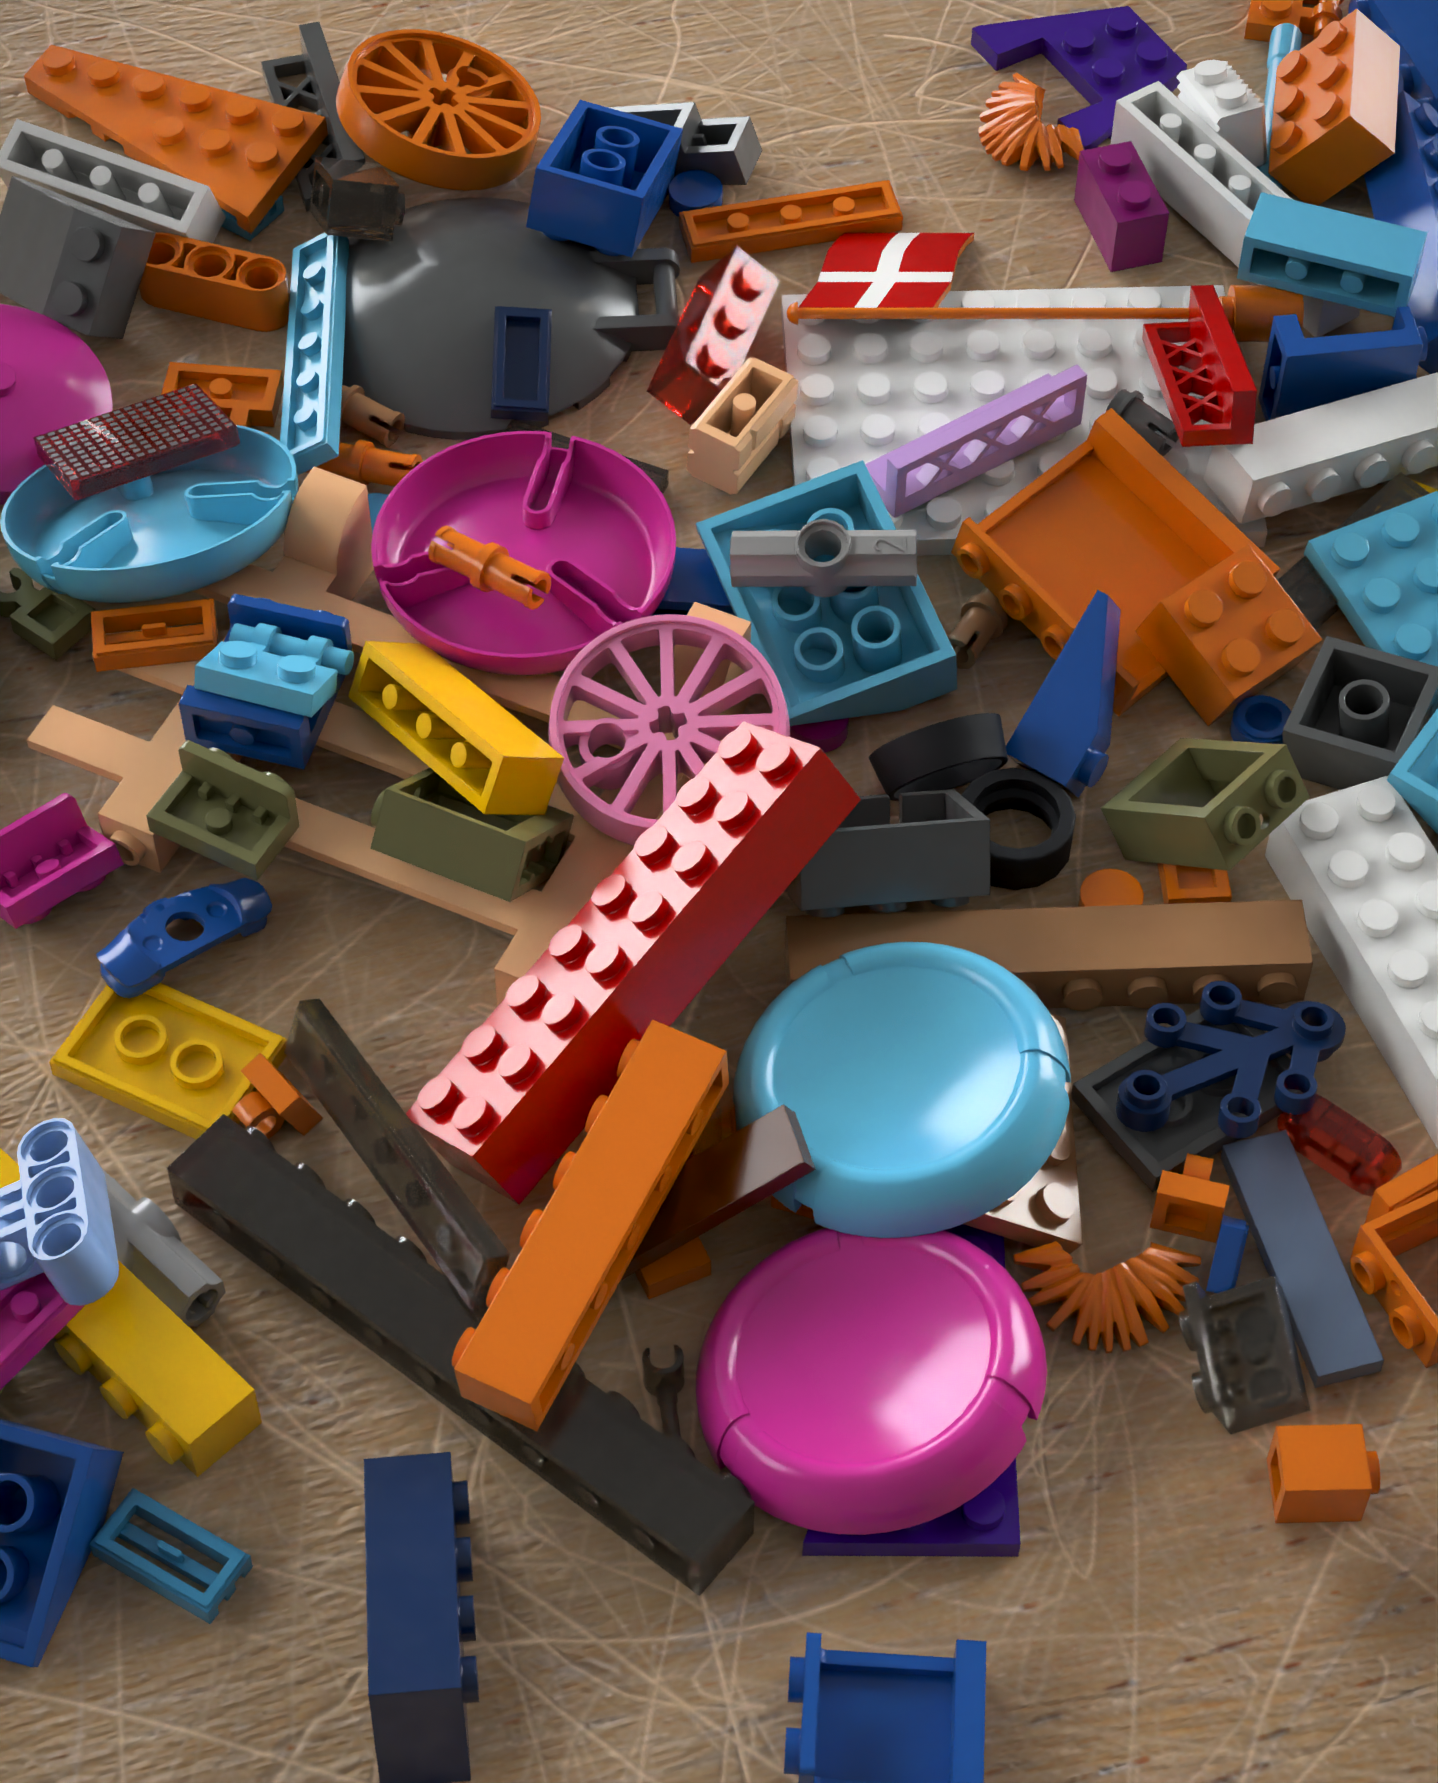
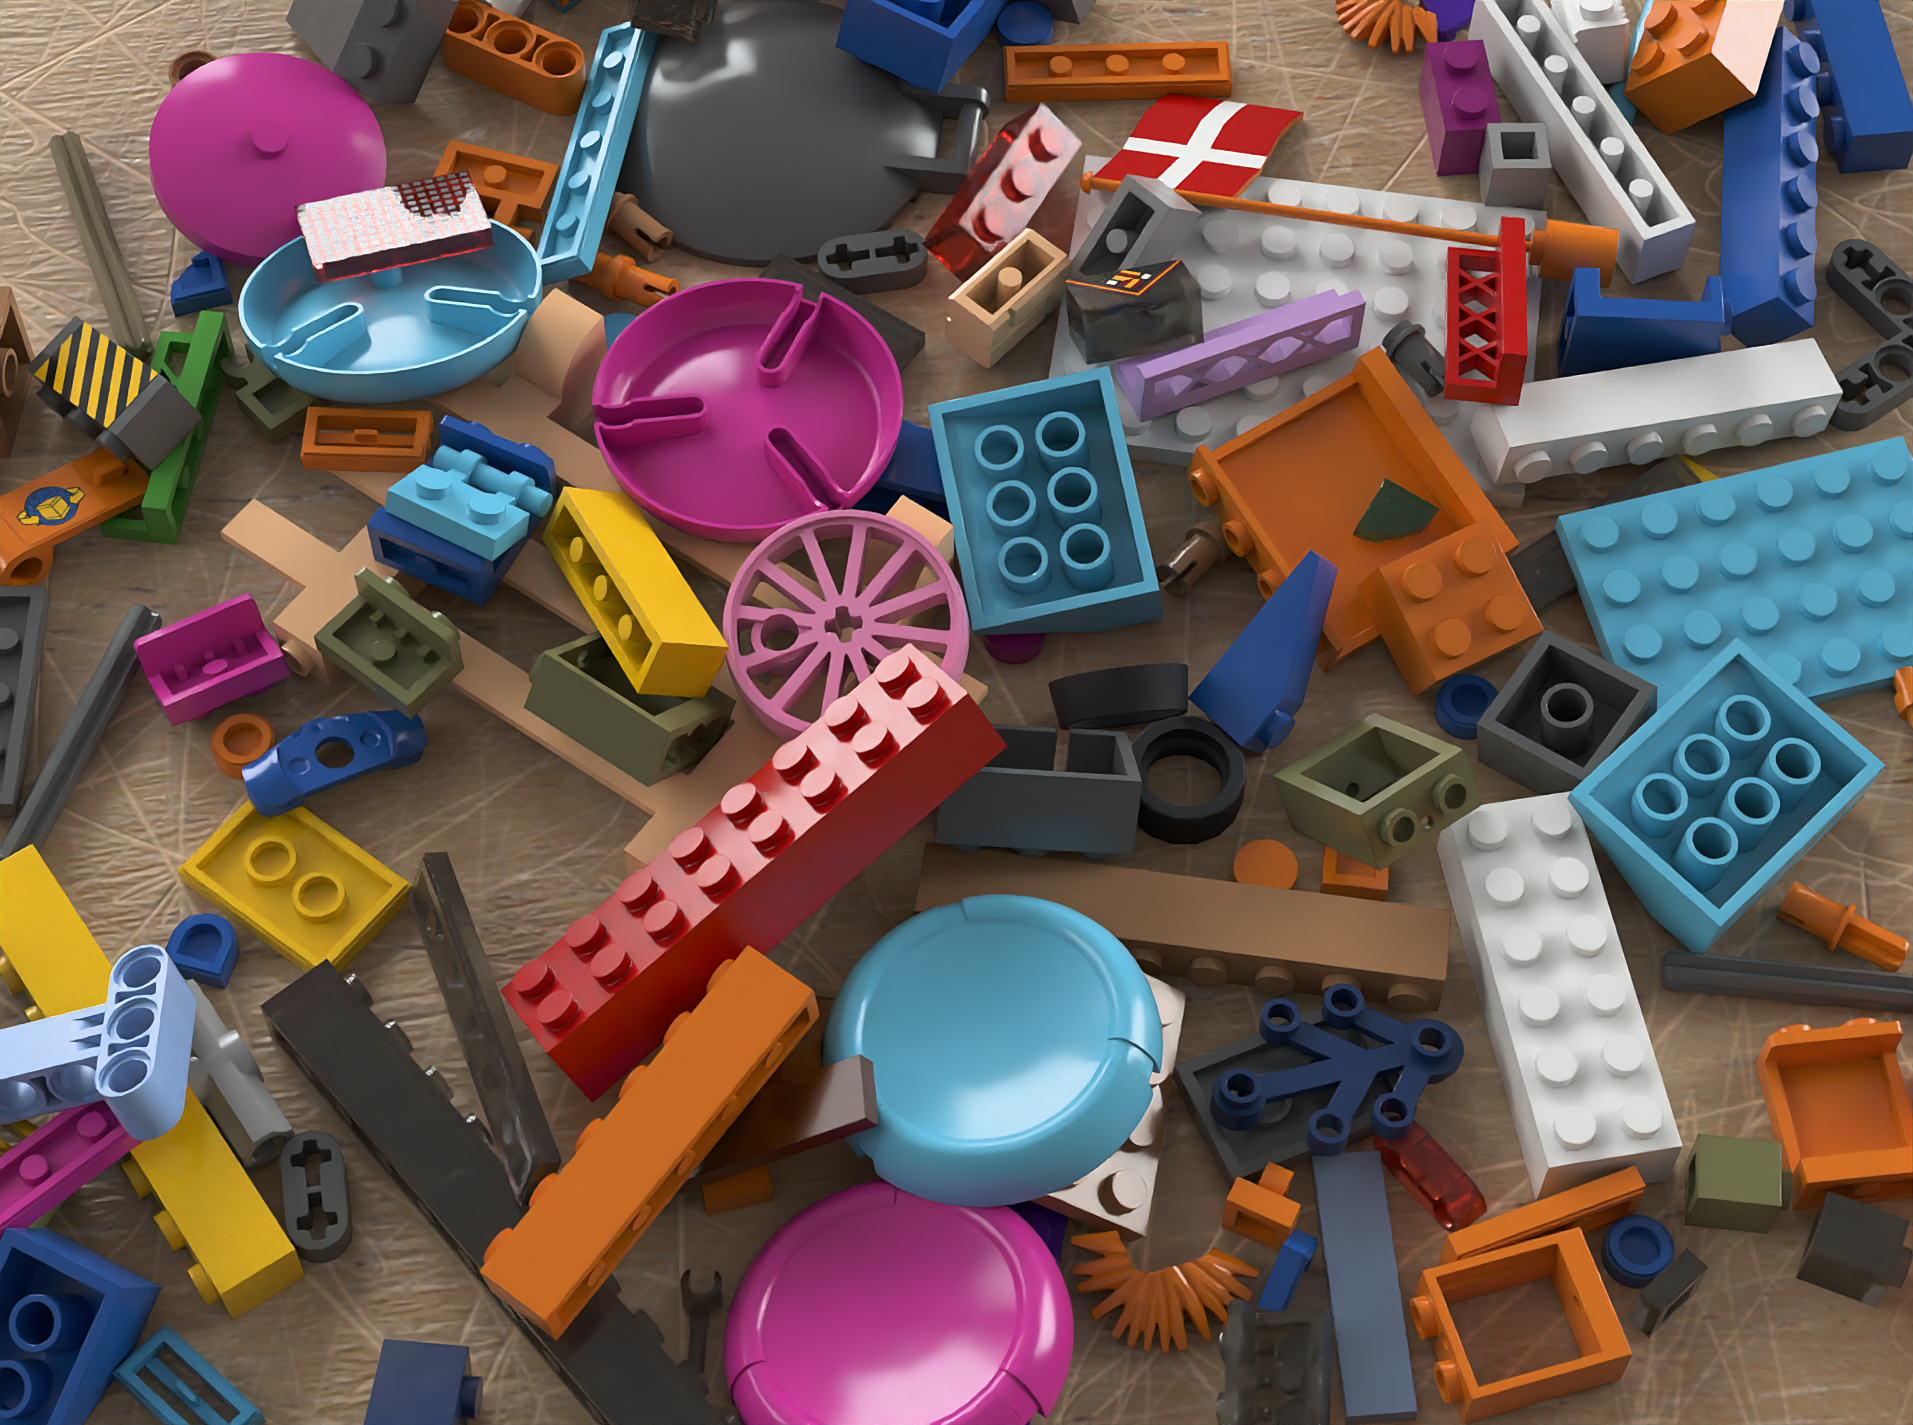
camera: 10 degrees right, 5 degrees up
(85, 934) = (240, 742): none -> orange tile
(100, 1127) = (204, 949): none -> blue tile
(271, 1339) = (331, 1194): none -> dark grey beam
(273, 1101) = (384, 949): orange tile -> none
(489, 567) = (703, 427): orange pin -> none
(521, 363) = (798, 196): dark blue tile -> none
(603, 414) = (874, 261): none -> dark grey beam
(788, 557) = (1081, 477): light grey piece -> none
(849, 356) = (1137, 228): none -> light grey slope
(868, 416) = (1134, 311): none -> clear smoke brick
(1155, 561) = (1394, 514): none -> clear green tile
(1186, 246) = (1515, 165): none -> light grey brick
(1331, 254) = (1654, 206): medium azure brick -> none

